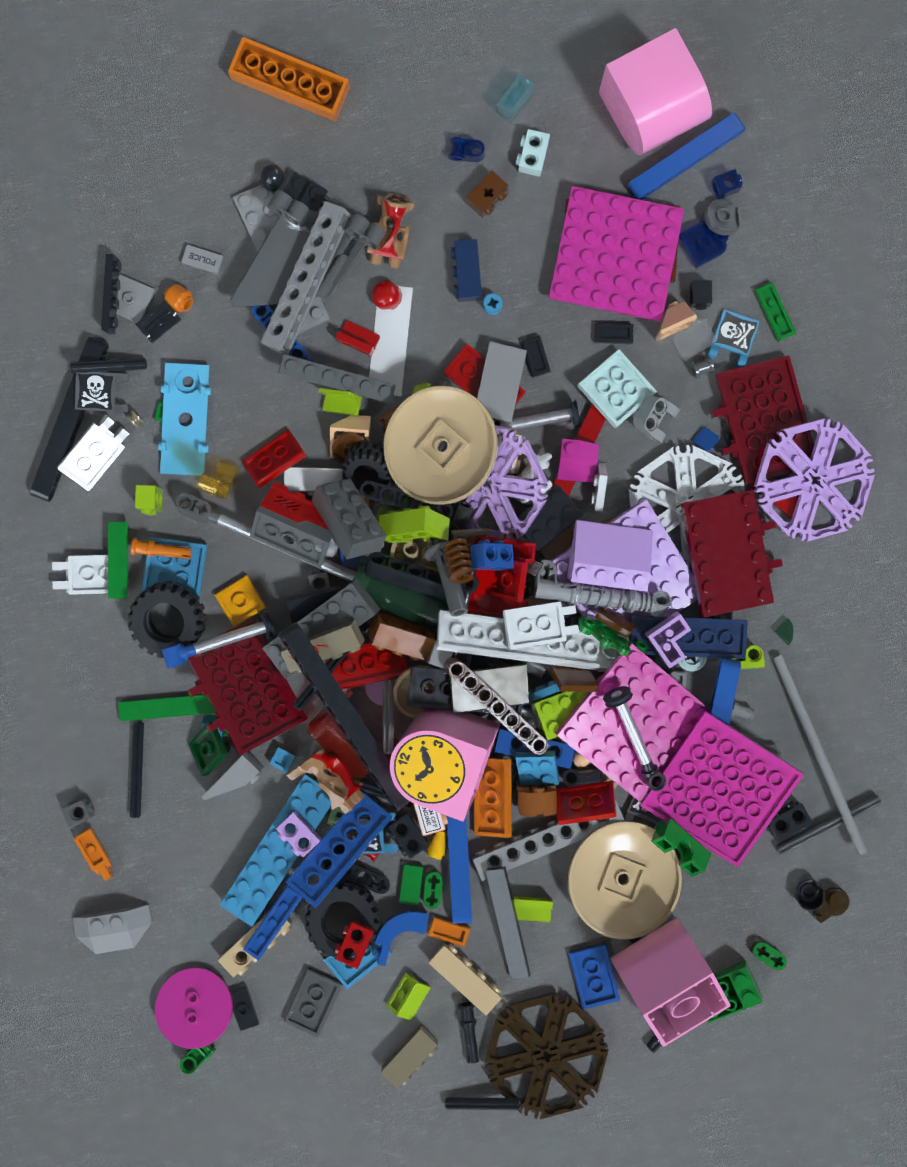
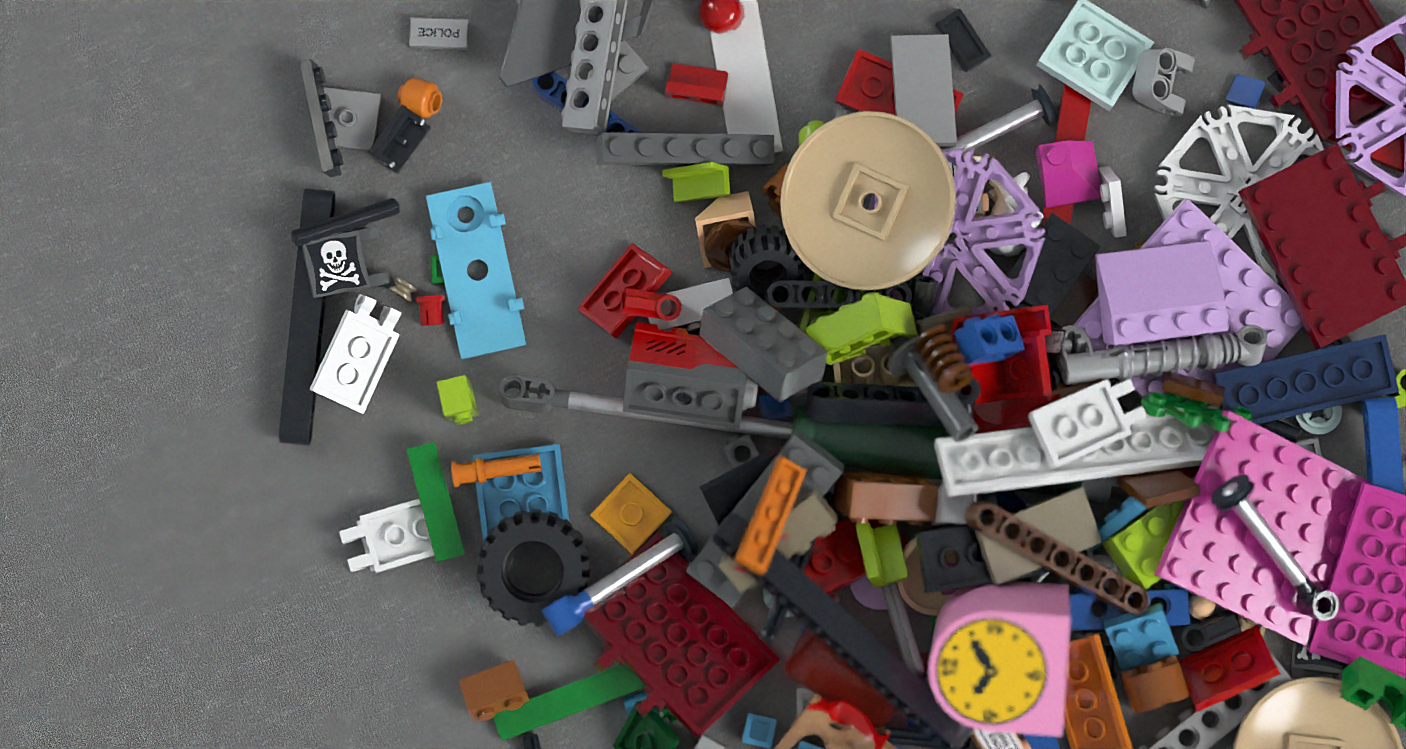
camera: 10 degrees left, 5 degrees down
(122, 689) = (494, 691): none -> dark orange brick
(148, 436) = (430, 309): none -> red bush
(221, 482) = (554, 347): clear yellow beam -> none
(283, 472) = (648, 304): none -> red piece
(319, 631) = (770, 515): none -> orange tile
(387, 672) = (882, 554): none -> lime panel
(664, 637) = (1272, 391): lavender brick -> none

